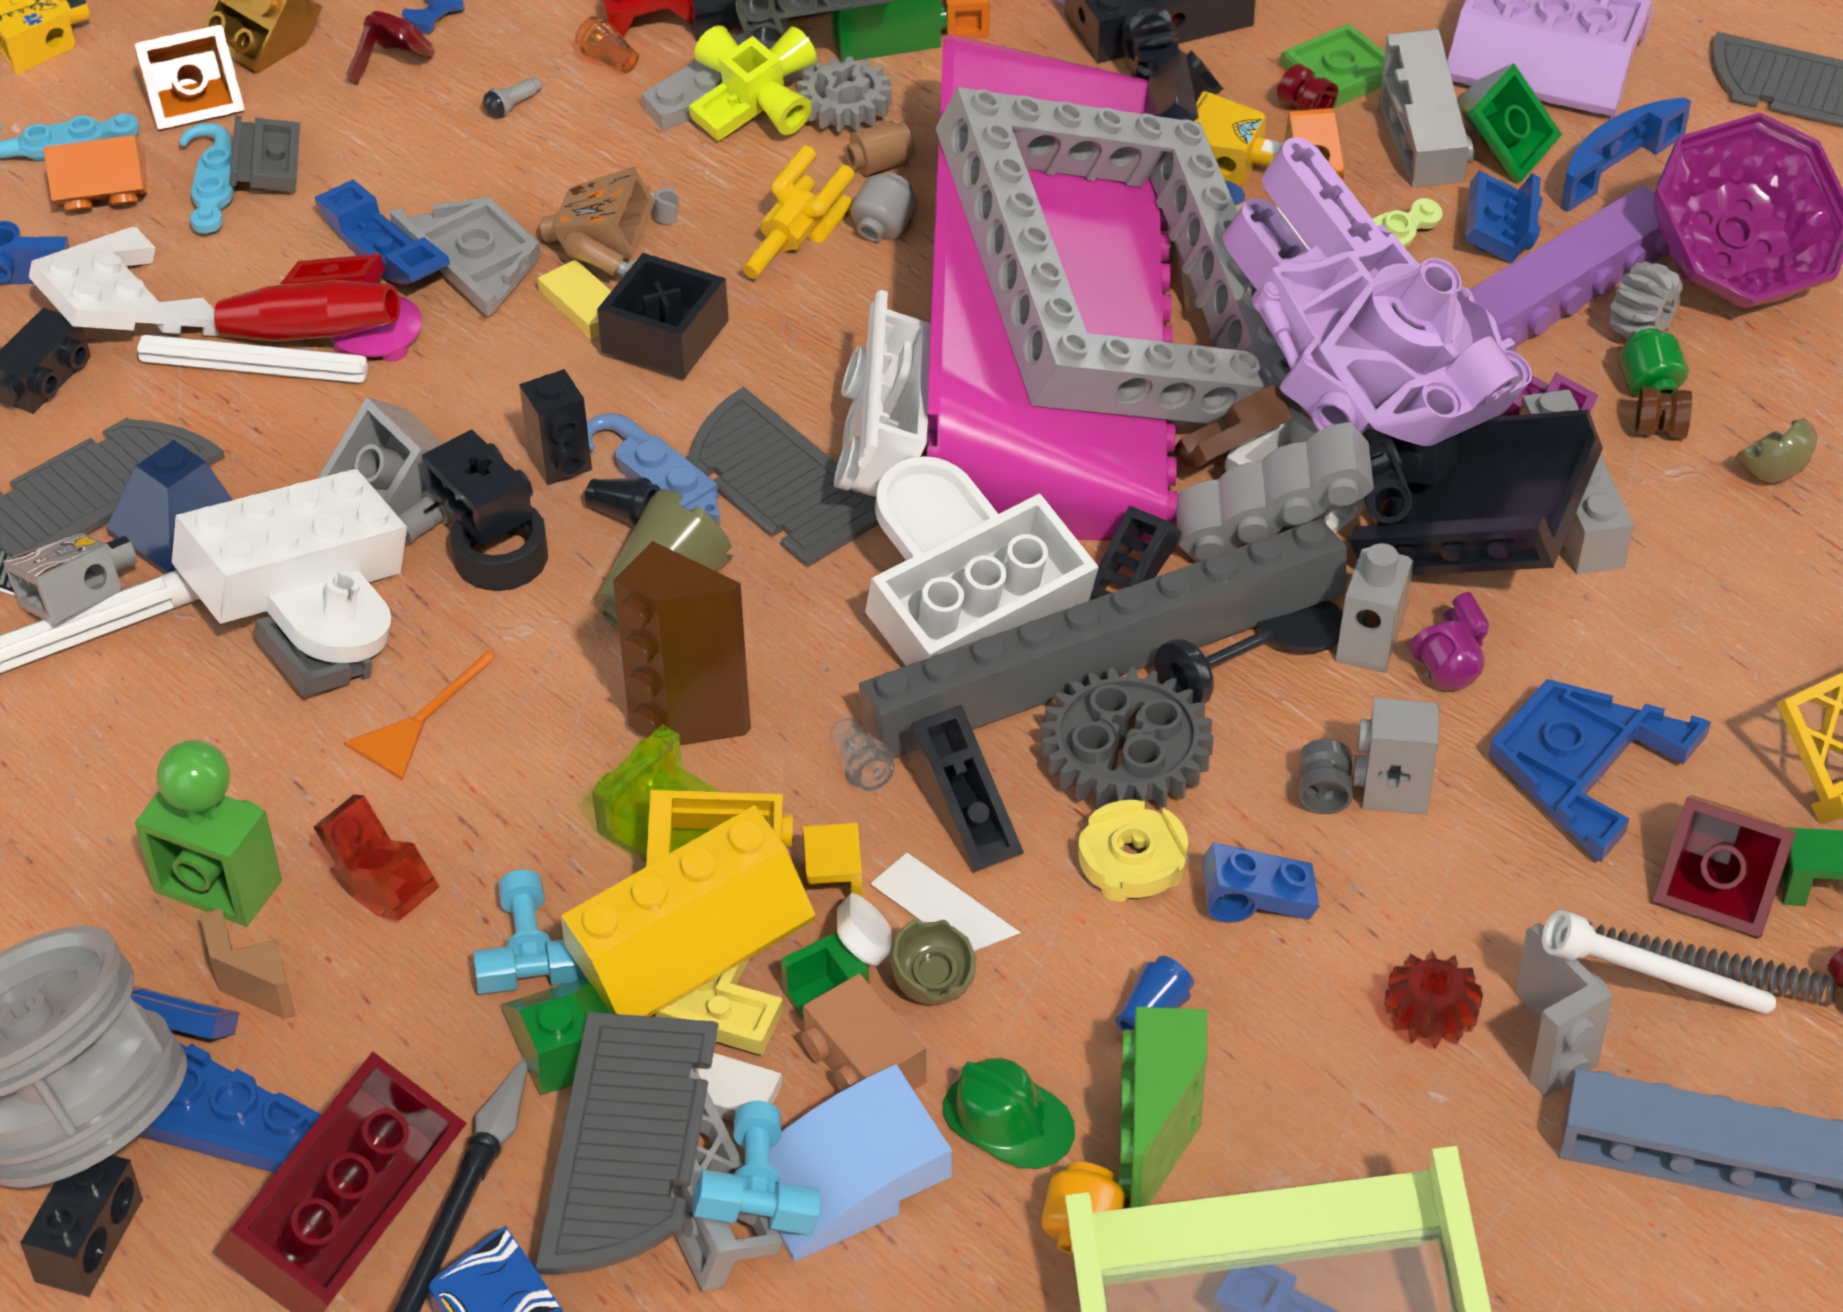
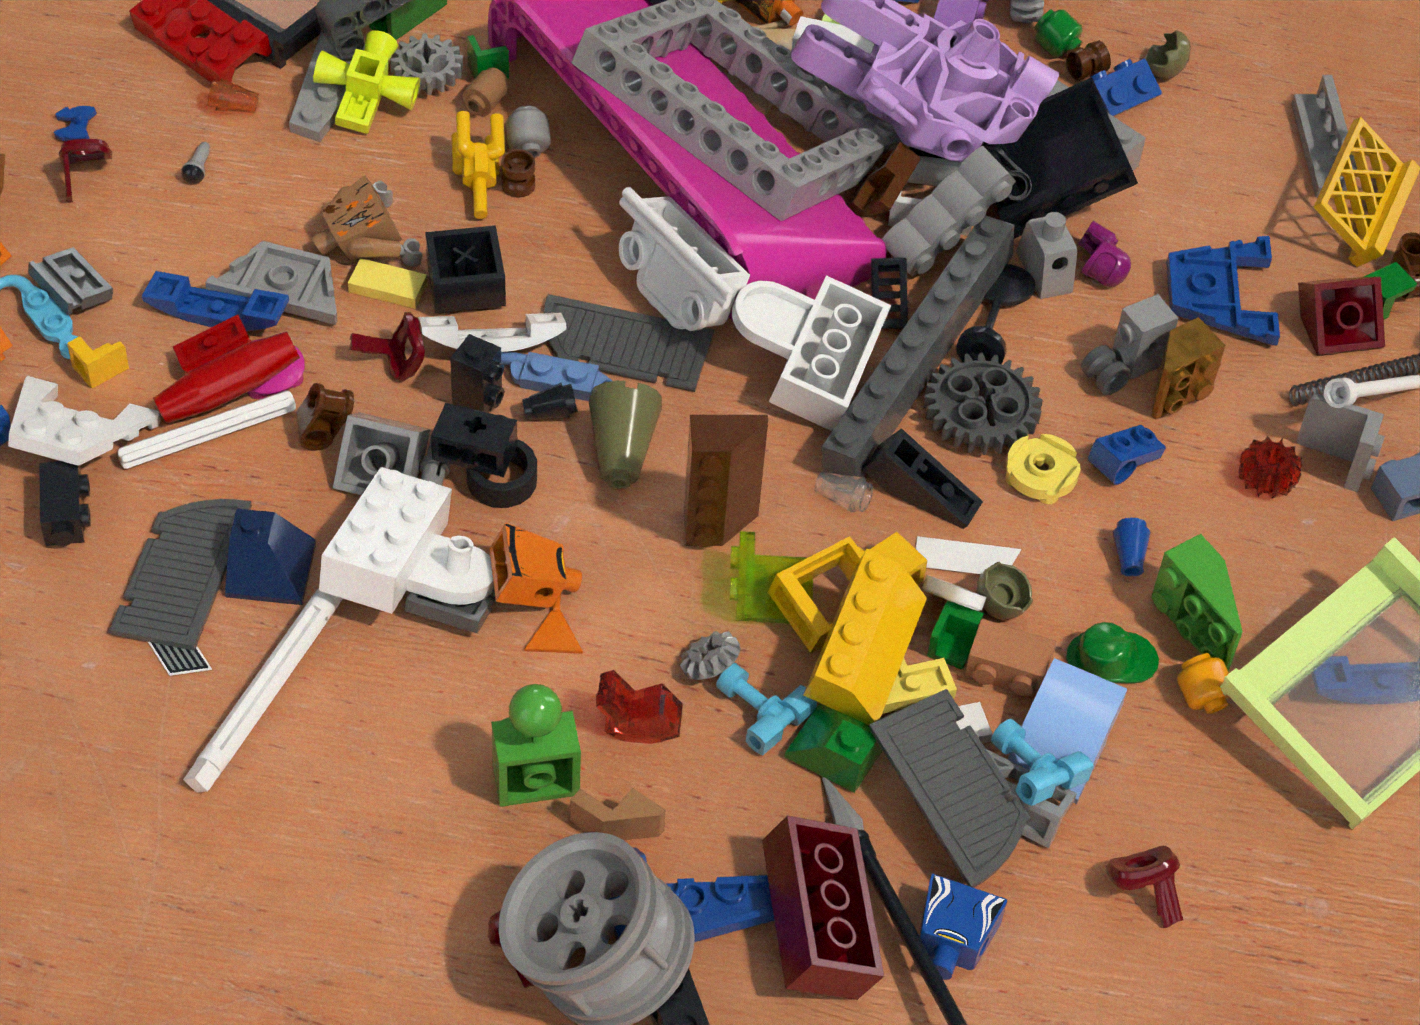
camera: 40 degrees left, 5 degrees up
(68, 575) = (248, 637): light grey torso -> none
(213, 247) = (98, 364): none -> yellow panel
(357, 381) = (322, 416): none -> reddish brown piece
(410, 654) = (529, 568): none -> orange torso
(518, 364) = (395, 348): none -> dark red piece
(519, 850) = (710, 656): none -> light grey gear
(624, 403) = (538, 329): none -> white slope
(830, 253) = (518, 173): none -> reddish brown wheel
(917, 114) = (485, 59): none -> green panel
(1413, 818) = (1187, 367): none -> pearl gold slope
(1682, 464) = (1127, 86): none -> blue bracket

